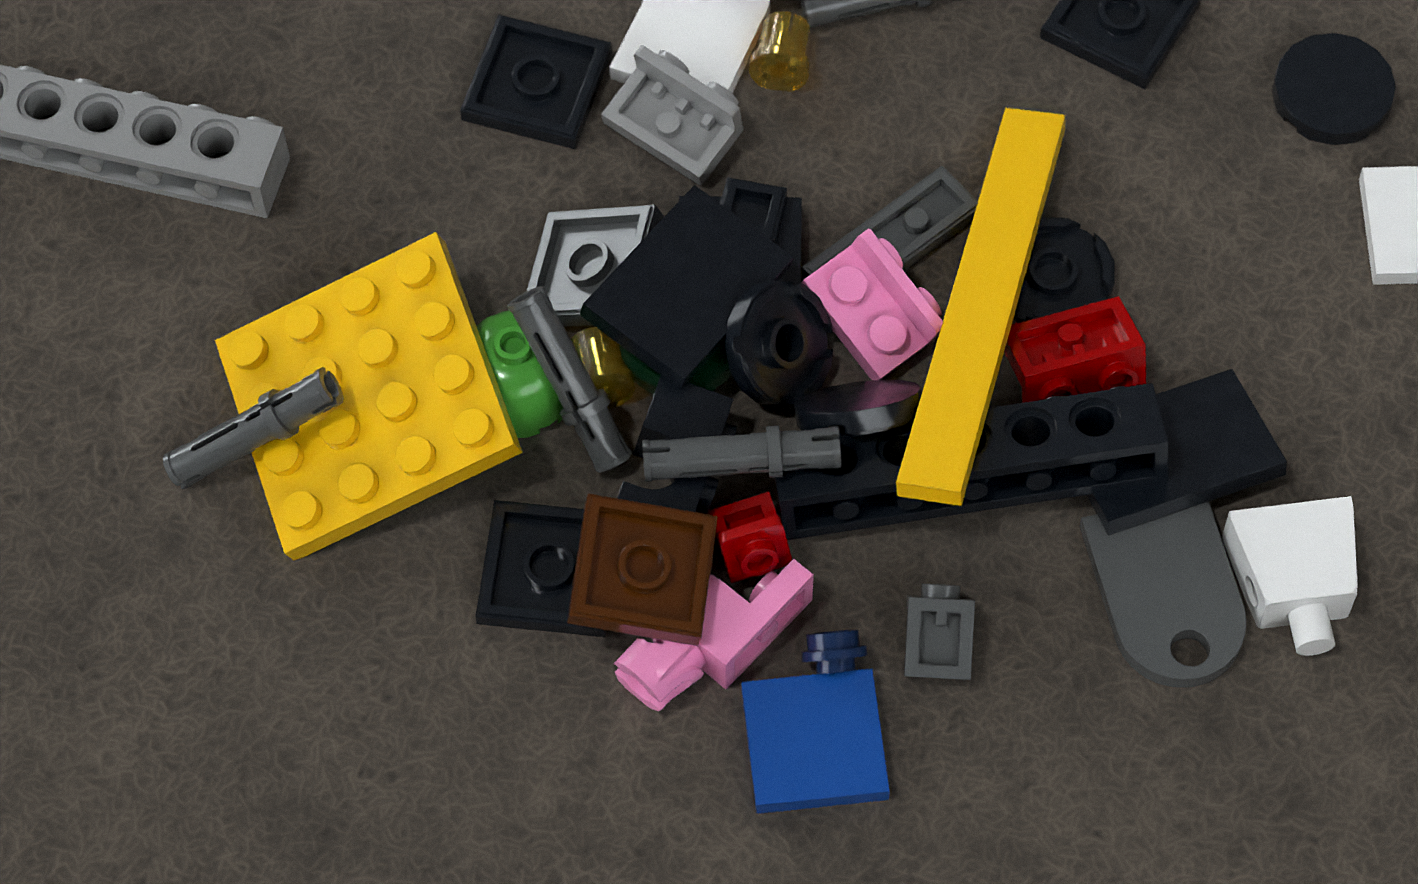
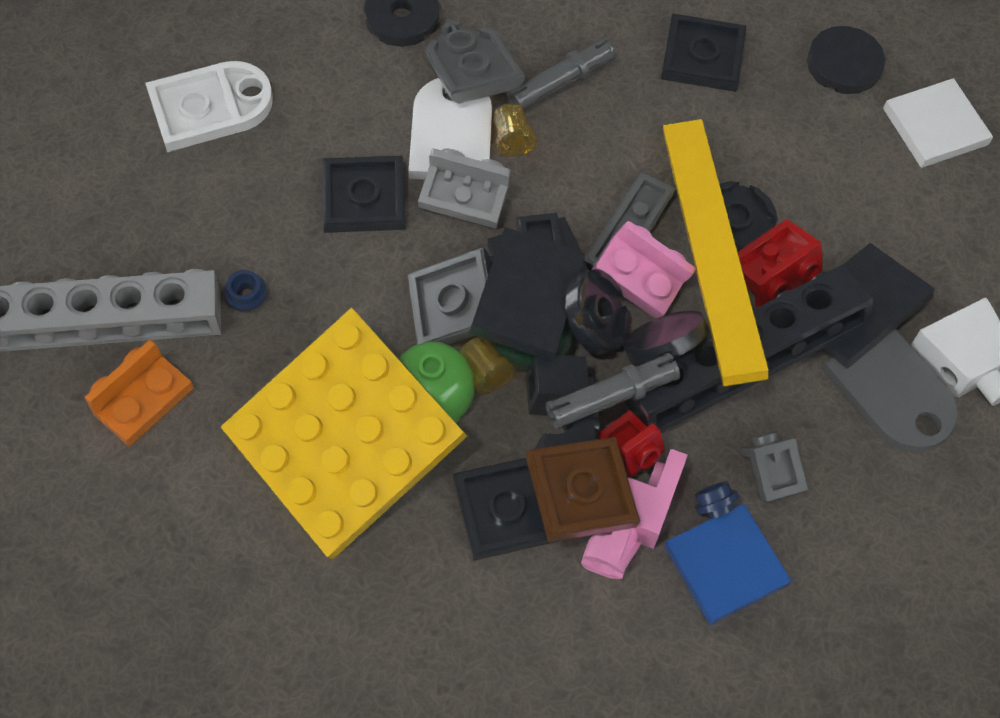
camera: 25 degrees left, 0 degrees up
(126, 261) = (137, 393): none -> orange bracket
(273, 417) = (289, 466): dark grey pin -> none
(318, 153) = (245, 280): none -> dark blue plate
(581, 401) = (489, 391): dark grey pin -> none

